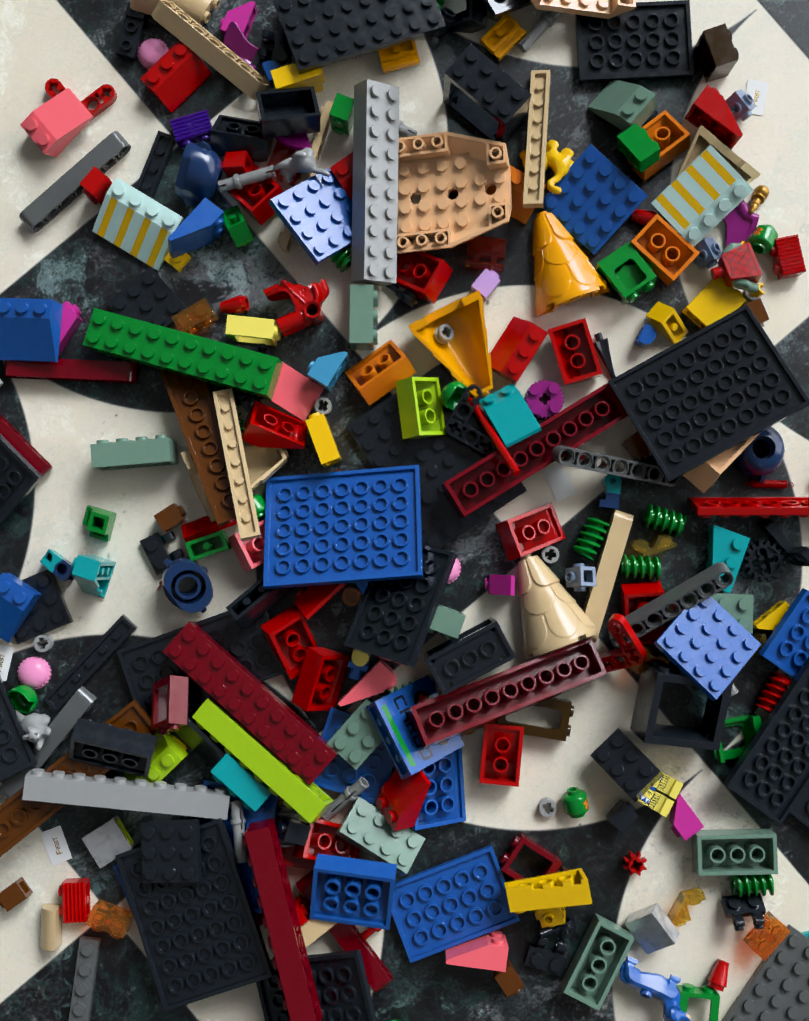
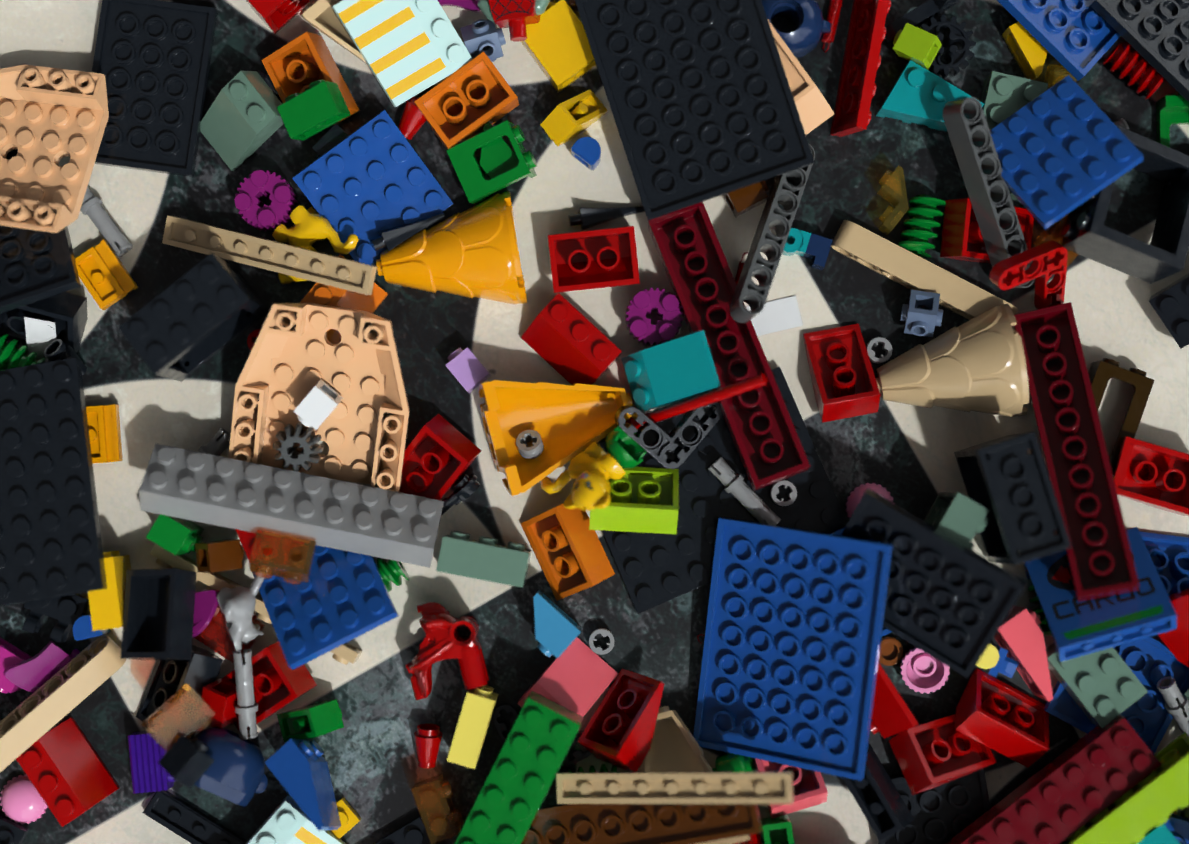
camera: 85 degrees left, 0 degrees up
(197, 144) = (186, 760): none -> black brick
(223, 136) = (179, 715): none -> clear orange brick
(323, 439) = (654, 651): yellow brick -> none
(333, 145) = (219, 555): none -> reddish brown brick
(340, 183) = (282, 557): none -> clear orange brick
(341, 621) = (923, 671): none -> bright pink hat
(419, 185) = (290, 454): none -> dark grey gear
(428, 373) = (592, 471): none -> yellow animal
(443, 472) = (747, 497): none -> light grey pin
(443, 500) = (774, 491): none -> light grey bush
(444, 187) = (317, 405): none -> white brick
(487, 248) = (412, 358): clear red plate -> none
(500, 584) = (912, 430): dark pink slope -> none
(565, 219) = (394, 236): none -> black piece
(574, 122) = (255, 190): none -> magenta brick
(590, 537) = (867, 288): green piece -> none
(664, 519) = (859, 176): green piece -> none
(760, 540) = (916, 45): none -> lime brick

